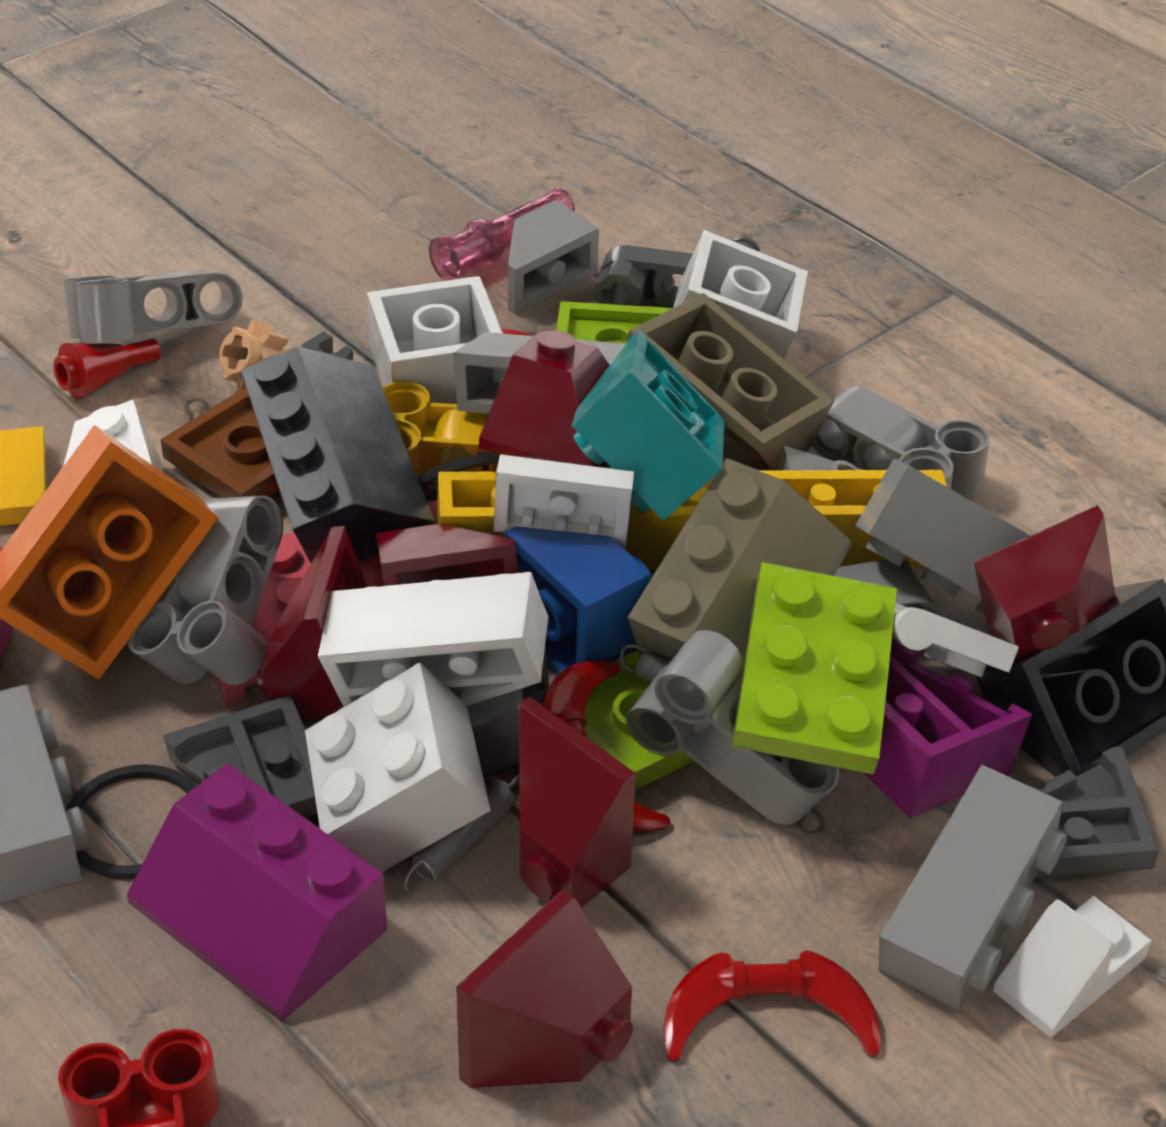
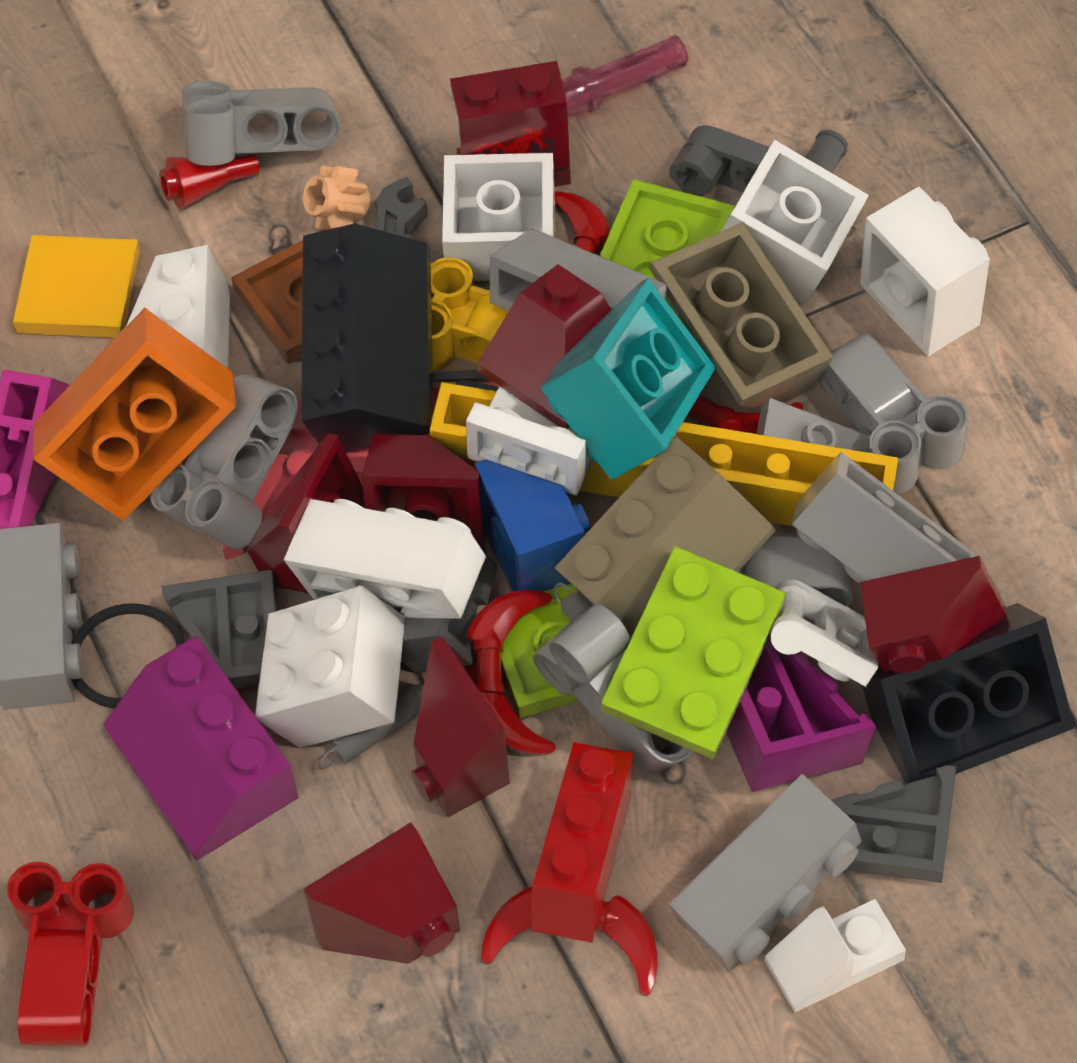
camera: 20 degrees right, 15 degrees up
(432, 238) = (515, 114): none -> dark red panel
(549, 254) = (639, 117): light grey slope -> none
(754, 896) = (582, 842): none -> red brick
(887, 325) = (924, 270): none -> white brick

